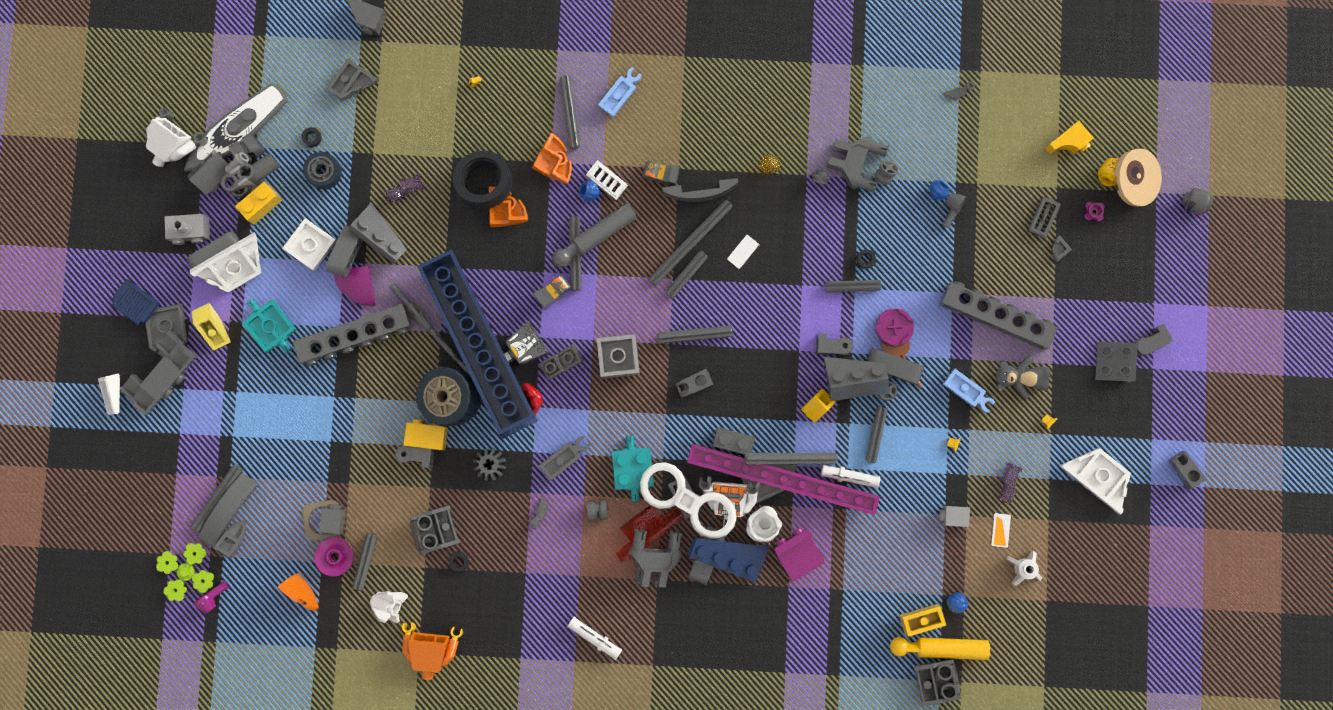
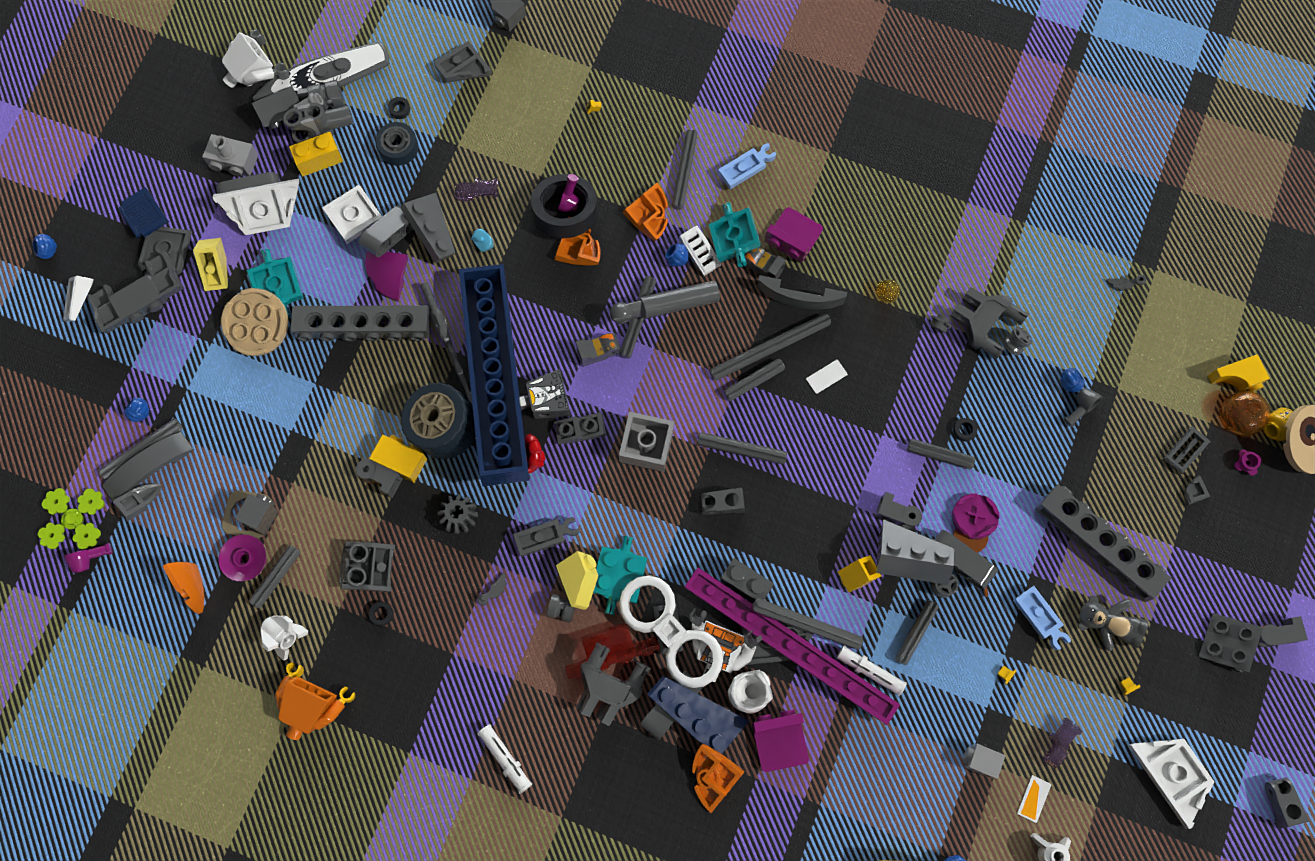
camera: 15 degrees right, 10 degrees down
(65, 359) = (44, 246): none -> blue piece
(200, 468) = (137, 410): none -> blue piece
(266, 364) = (254, 322): none -> tan tile
(425, 231) = (482, 240): none -> medium azure piece
(484, 173) = (569, 201): none -> magenta bar
(603, 484) = (578, 578): none -> light yellow slope
(630, 158) = (734, 234): none -> teal plate
(678, 140) = (793, 234): none -> magenta bracket
(757, 596) = (714, 776): none -> orange brick
(1081, 171) = (1245, 413): none -> clear orange cylinder

